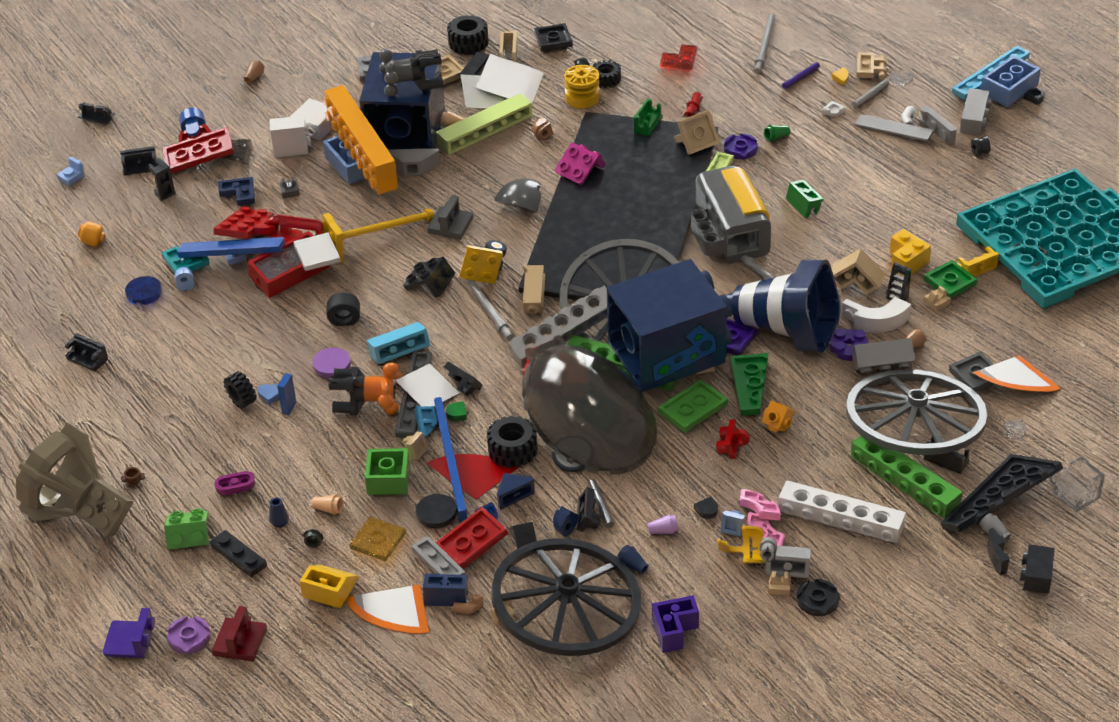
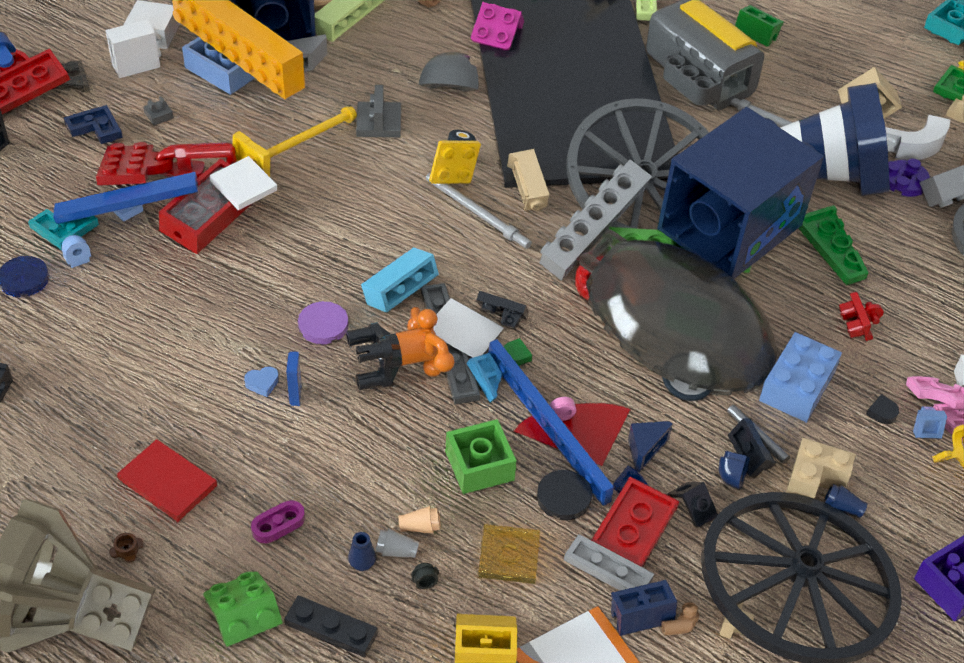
camera: 25 degrees left, 5 degrees up
(177, 442) = (167, 480): none -> red tile
(239, 389) = (226, 386): black tyre -> none
(303, 514) = (396, 545): none -> light grey cone
(343, 309) = (308, 250): black tyre -> none
(416, 445) = (491, 408): tan tile -> none
(434, 273) = (391, 182): black bracket -> none
(465, 454) = (564, 407): none -> bright pink tile
(512, 441) = (616, 363): black tyre -> none
(624, 530) = (819, 466): none -> tan brick
(654, 470) = (800, 377): none -> medium blue brick
(664, 525) = (856, 442): lavender cone -> none
(692, 405) = (789, 285): bright green plate -> none
(777, 416) = (904, 273): light orange brick -> none
(895, 282) = (920, 112): black slope -> none
(909, 251) = (904, 64): yellow brick -> none

